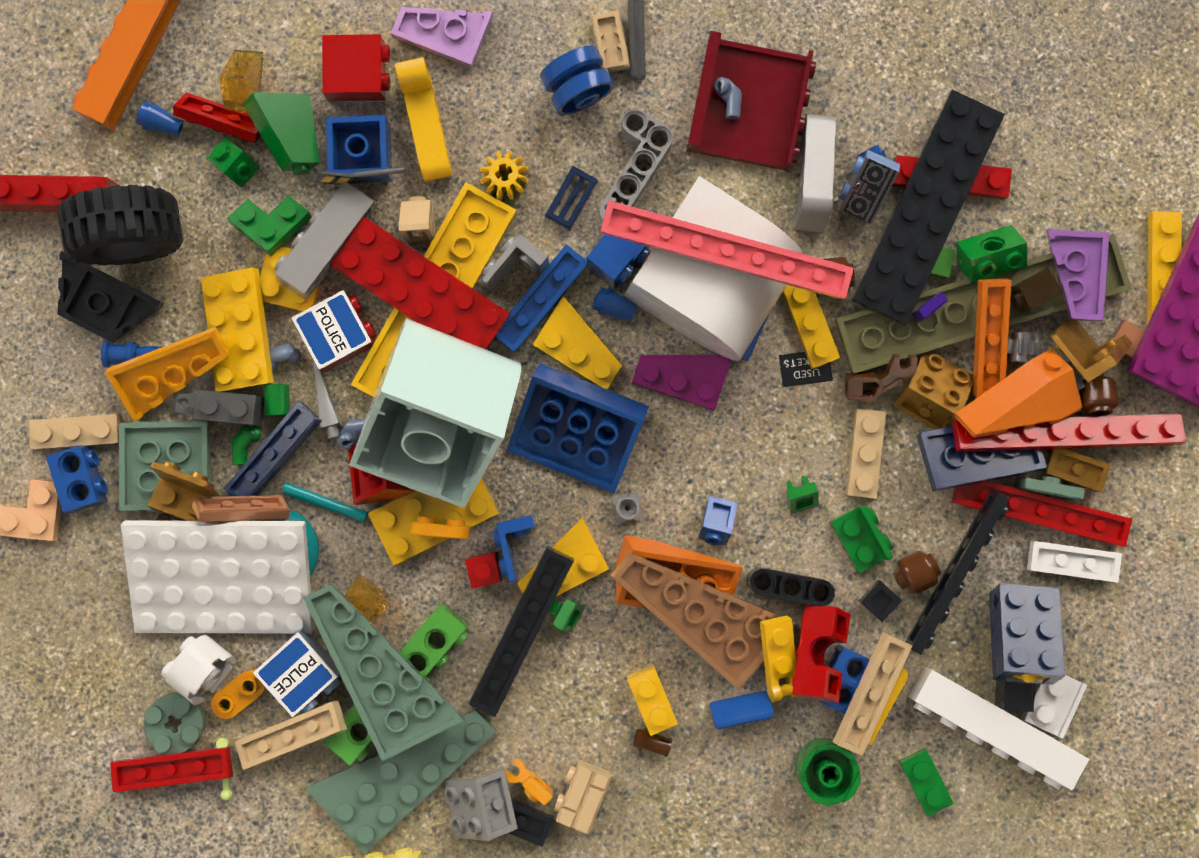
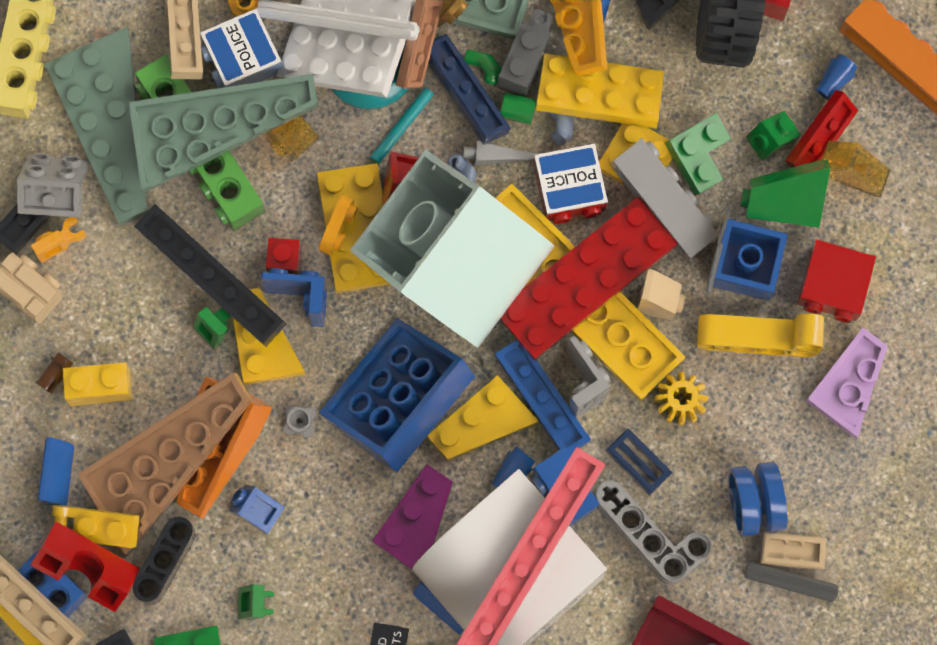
camera: 105 degrees right, 10 degrees down
(242, 589) = (338, 20): none -> white axle

